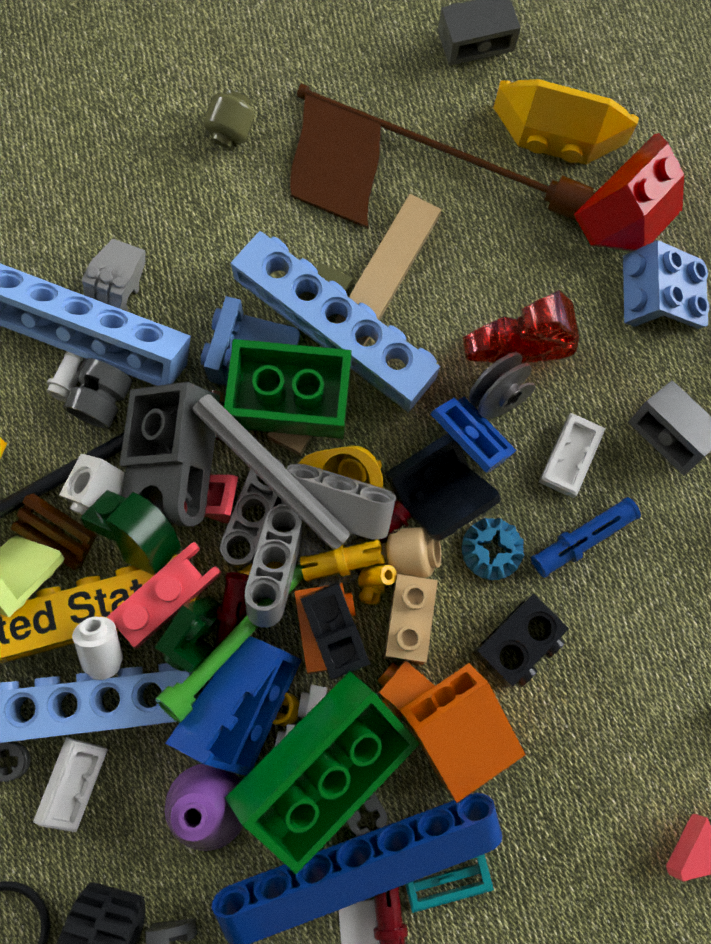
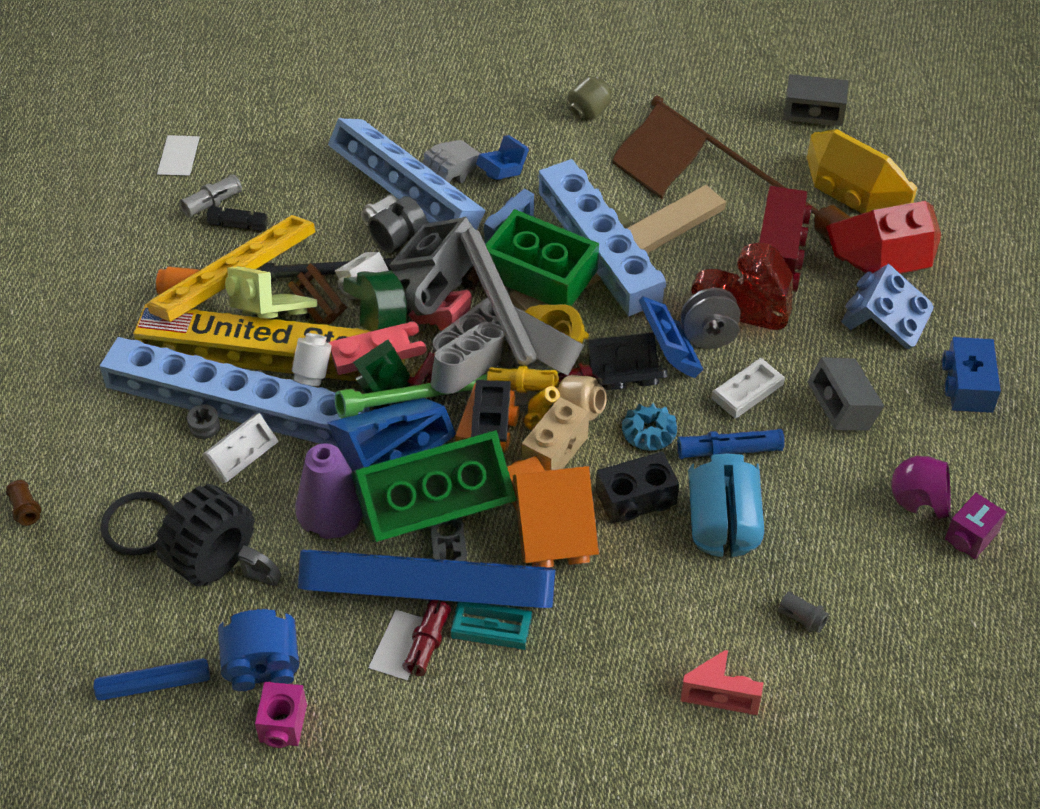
camera: 30 degrees right, 25 degrees down
(174, 248) = (506, 161): none -> blue bracket
(531, 247) = (783, 227): none -> dark red brick
(626, 634) = (726, 497): none -> dark azure cylinder

